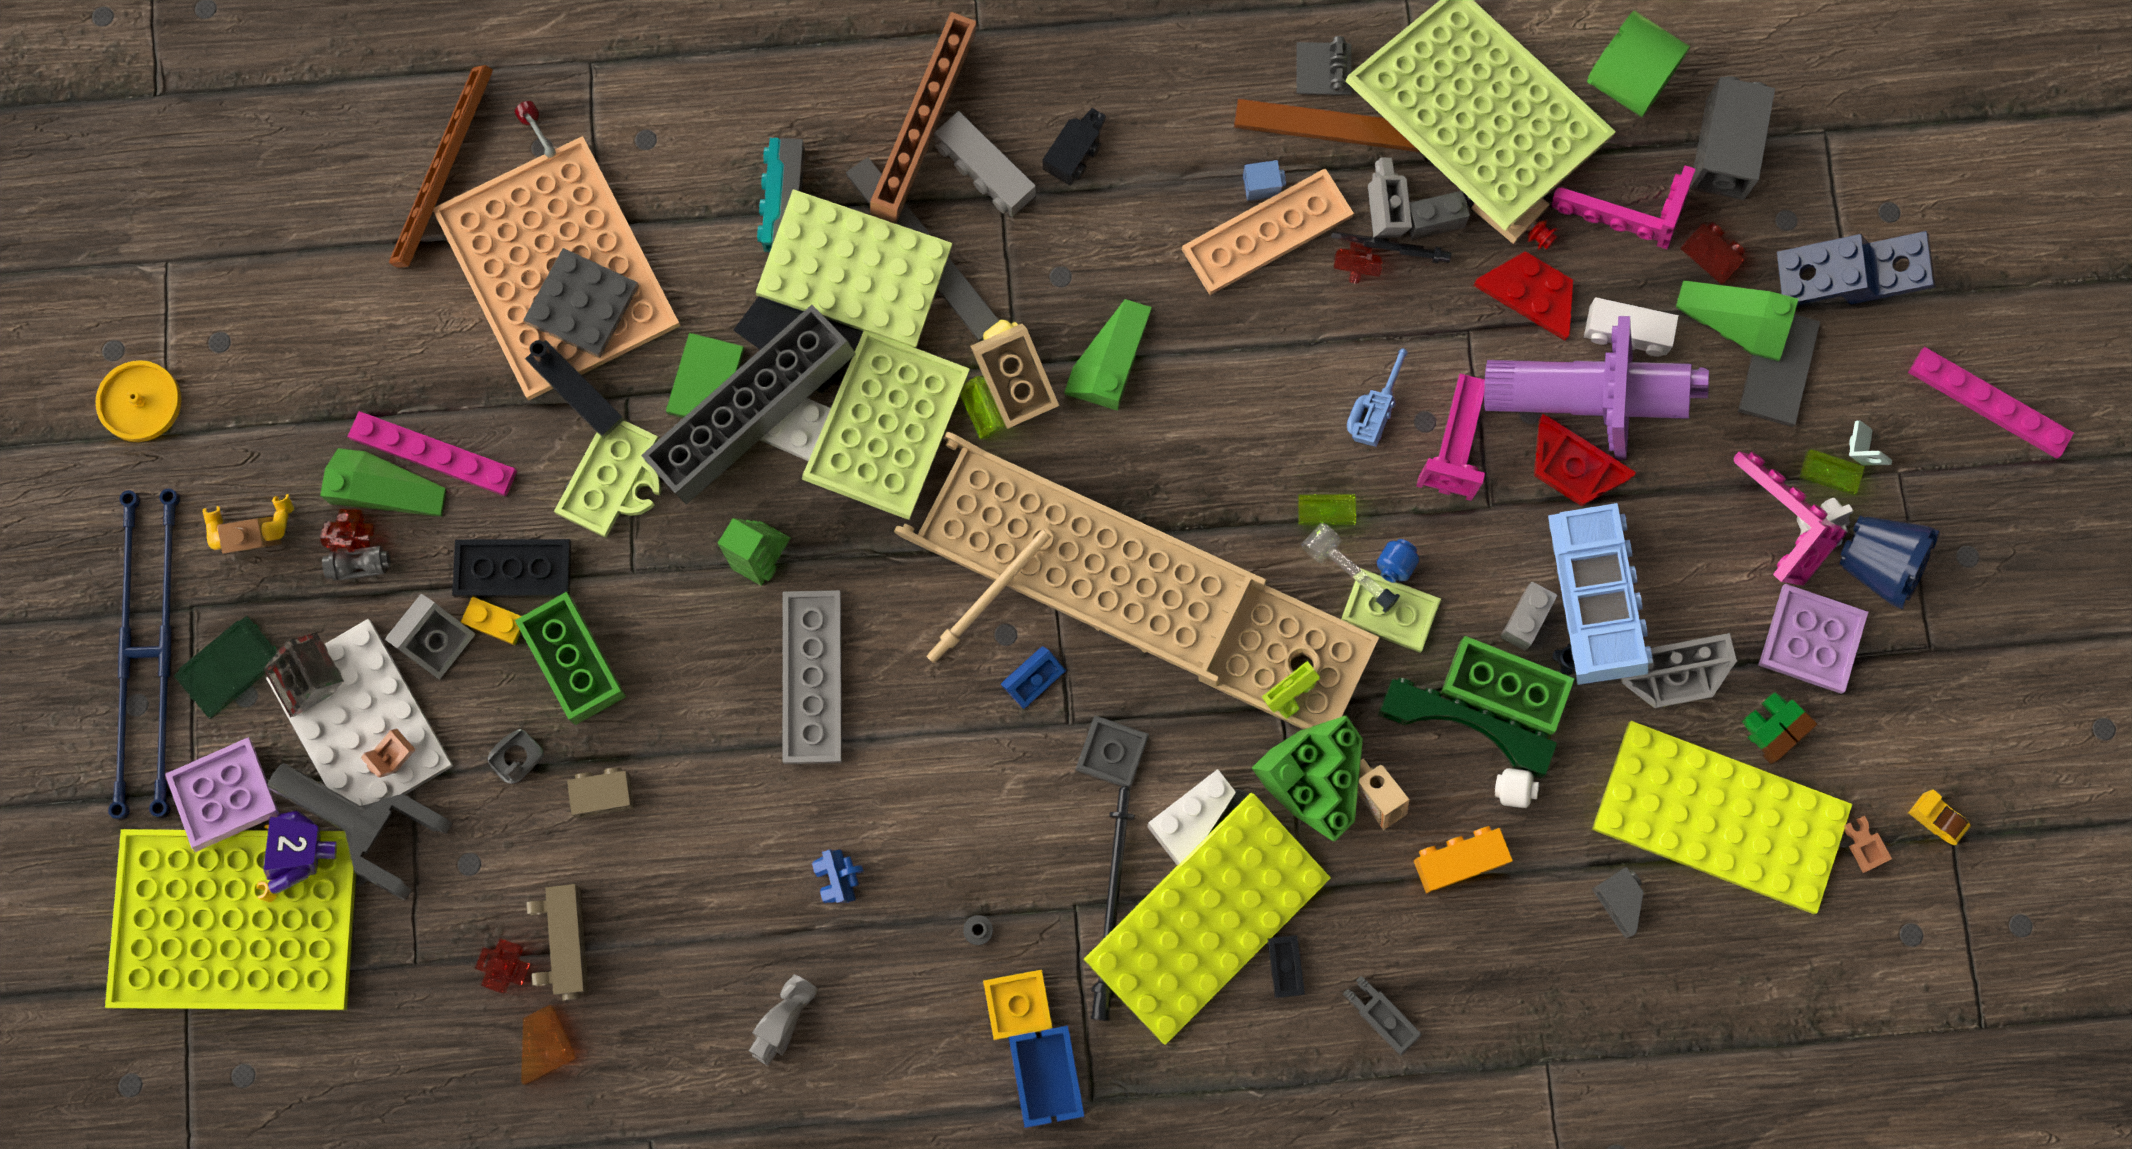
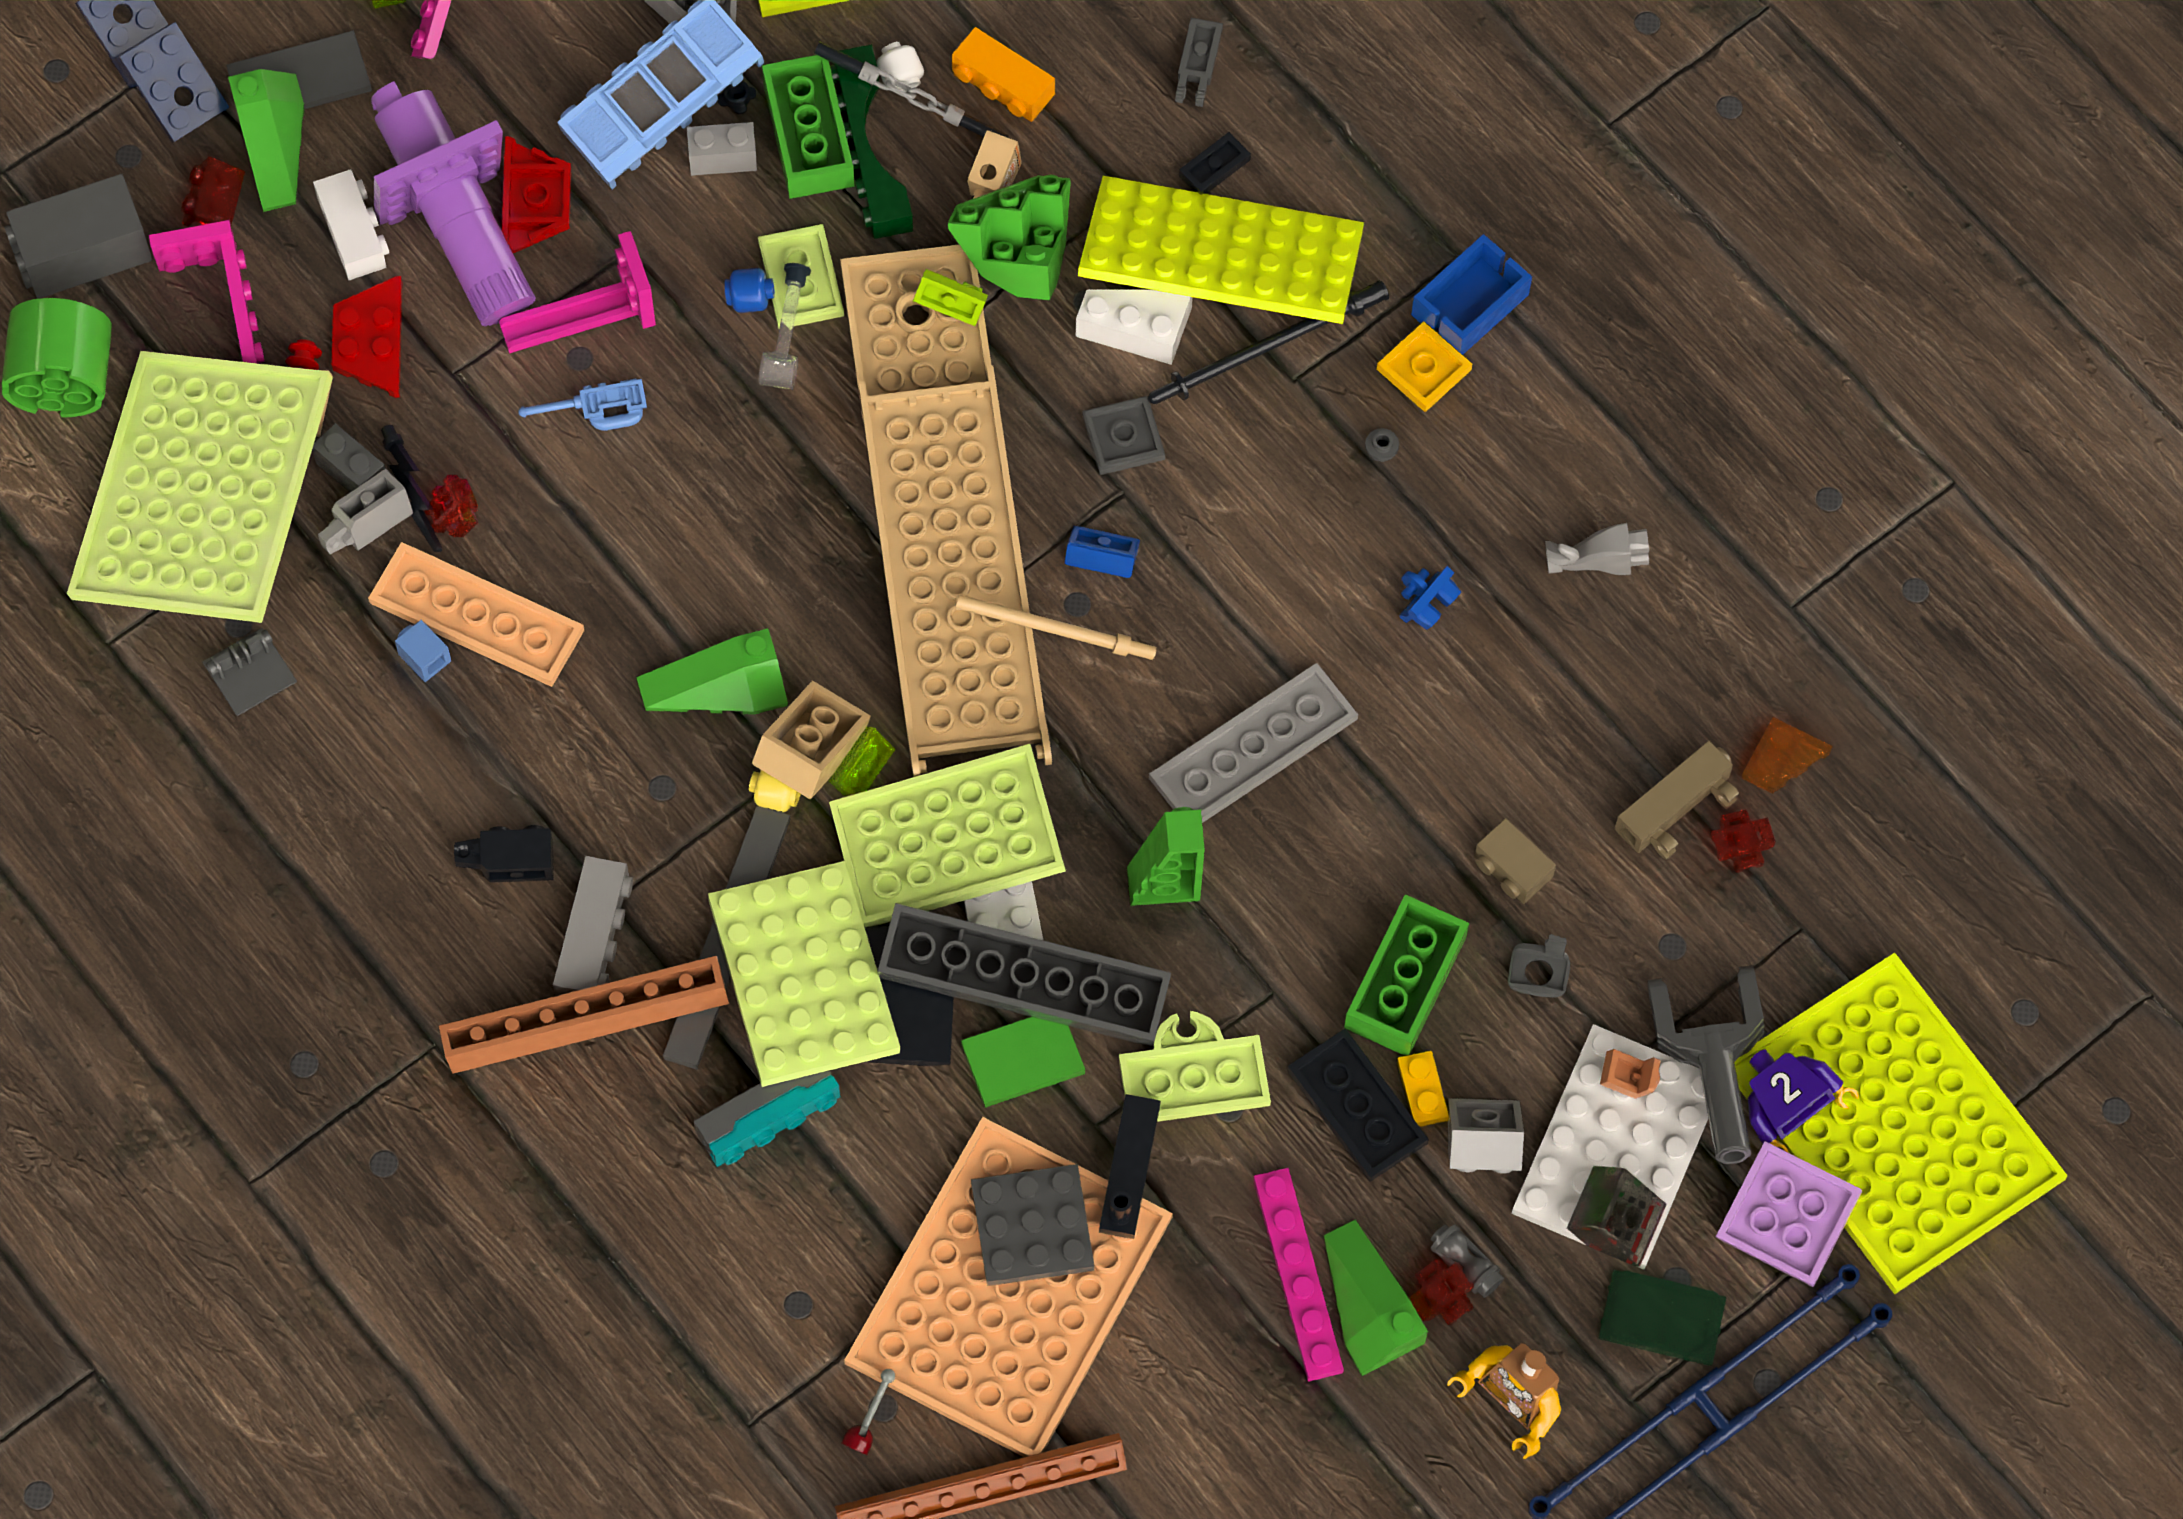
camera: 125 degrees left, 10 degrees down
(1319, 124) = (321, 644): dark orange tile -> none
(1327, 509) = (739, 387): clear neon green plate -> none
(1517, 753) = (870, 73): none -> piece

